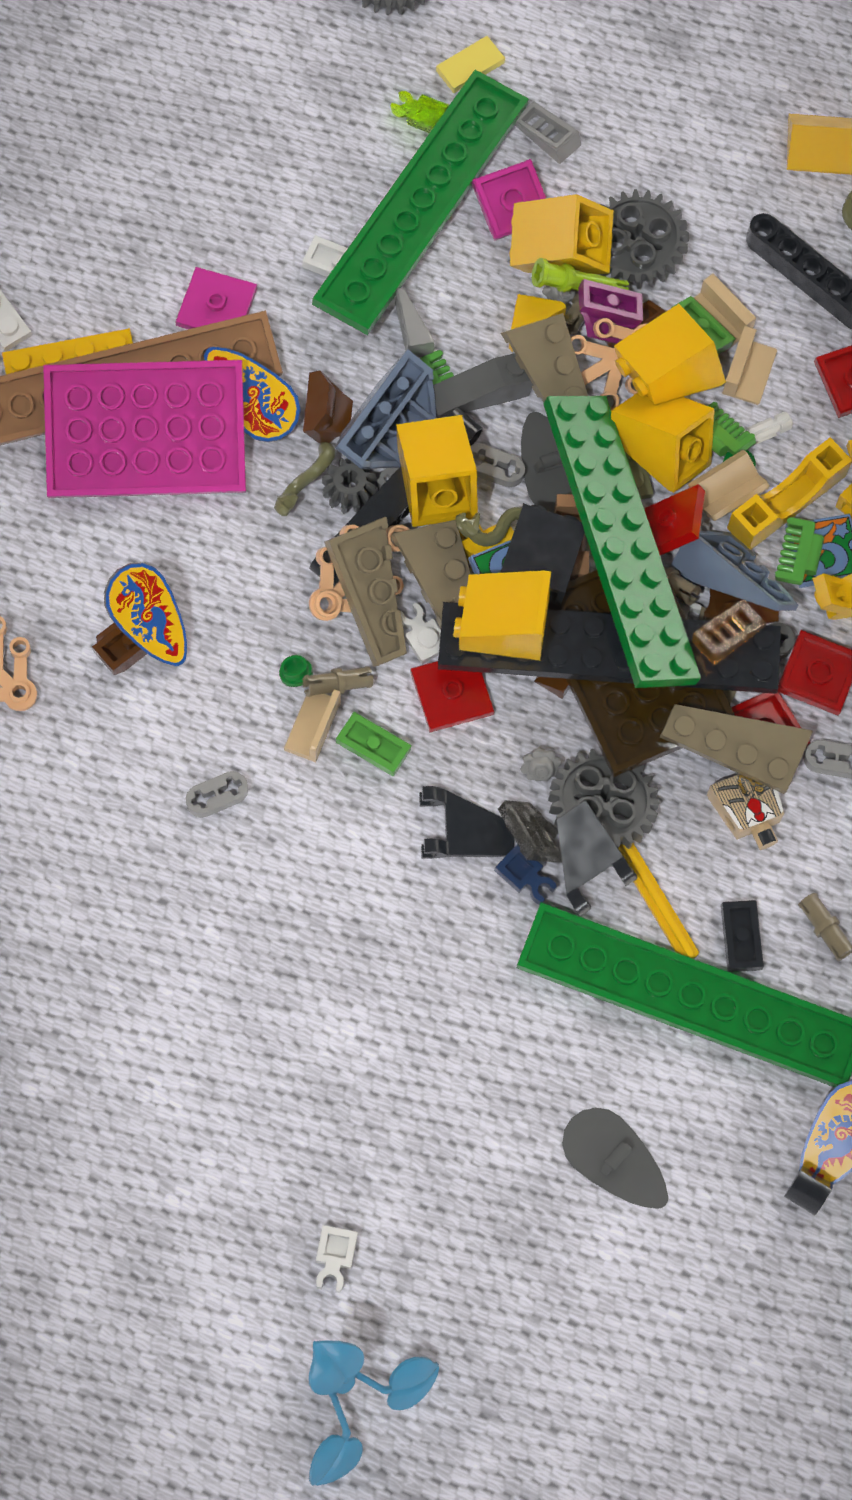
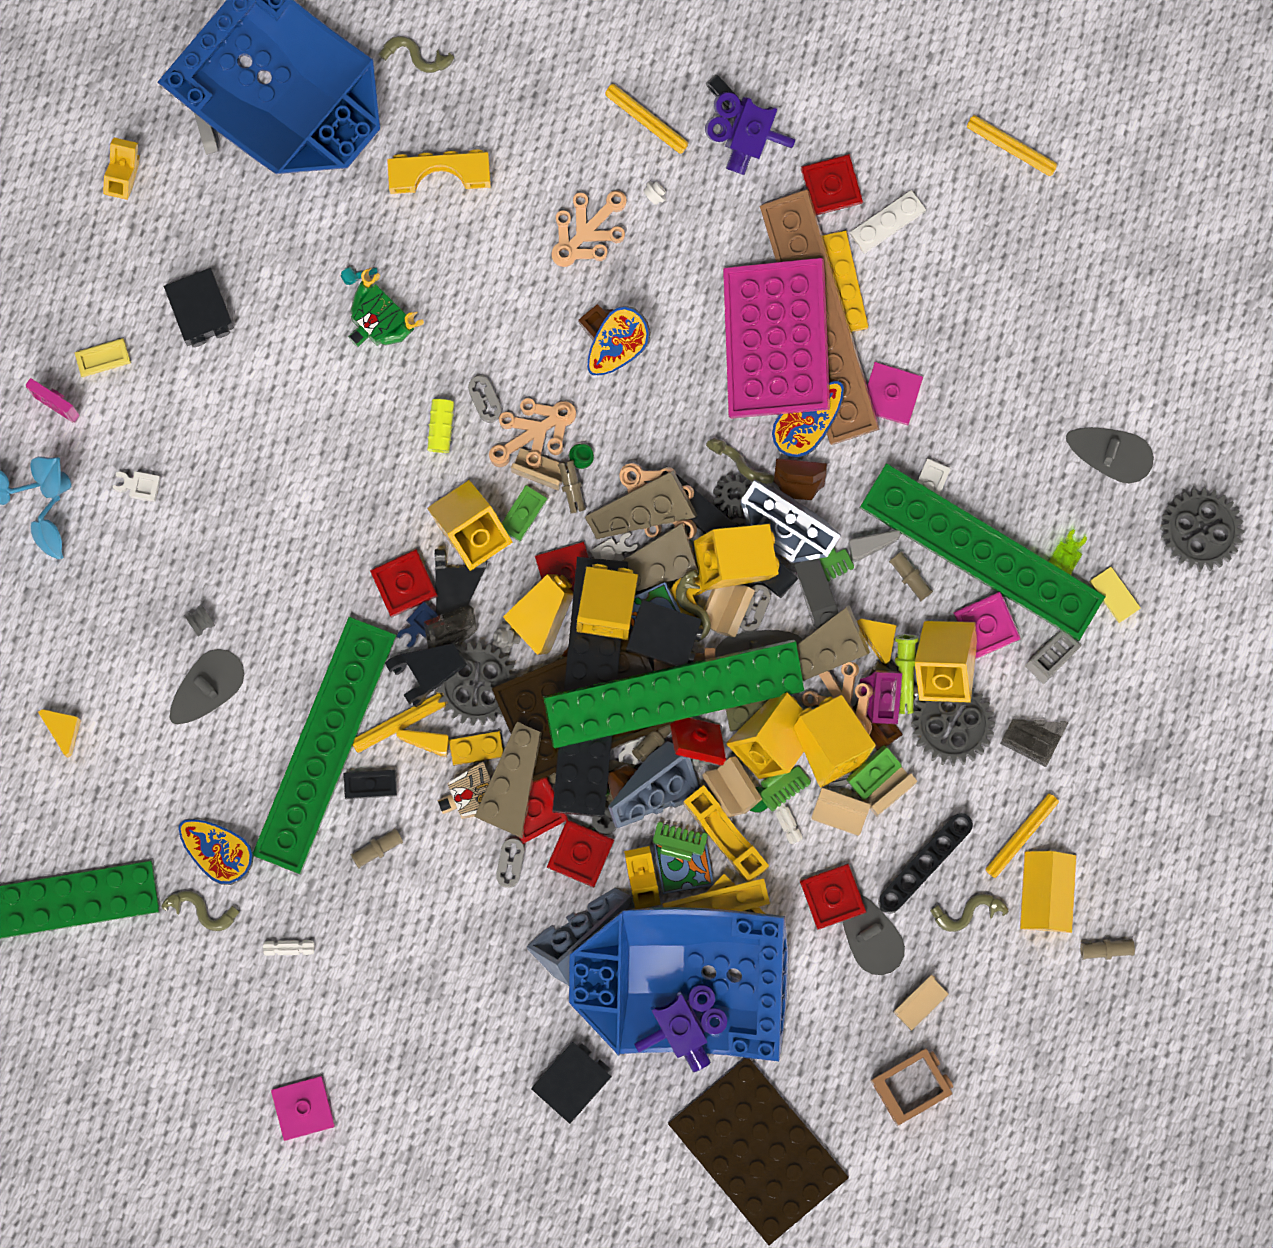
camera: 95 degrees right, 10 degrees up
(40, 973) = (350, 277): none -> teal hand
(81, 1175) = (199, 308): none -> black brick
(99, 929) = (378, 315): none -> green torso
(148, 1314) = (102, 357): none -> light yellow tile
(214, 1375) = (52, 399): none -> dark pink plate
(253, 849) = (440, 426): none -> neon yellow axle
(261, 727) = (535, 431): none -> light nougat plant
(293, 64) = (1113, 452): none -> dark grey shield
(391, 804) = (469, 524): none -> yellow slope
(451, 284) = (911, 576): none -> dark tan pin
(469, 895) = (403, 583): none -> red plate
(500, 490) = (727, 608): none -> tan panel
(510, 709) = (541, 612): none -> yellow slope
(525, 1165) = (199, 620): none -> dark grey wheel
(651, 152) = (1034, 738): none -> clear smoke wing
(683, 853) = (430, 742): none -> yellow slope
(683, 1352) = (63, 729): none -> yellow slope
(687, 803) = (476, 748): none -> yellow plate
(716, 653) = (596, 758): clear orange slope -> none
(768, 169) = (1022, 835): none -> yellow axle
(809, 1190) = (177, 824): black brick -> none

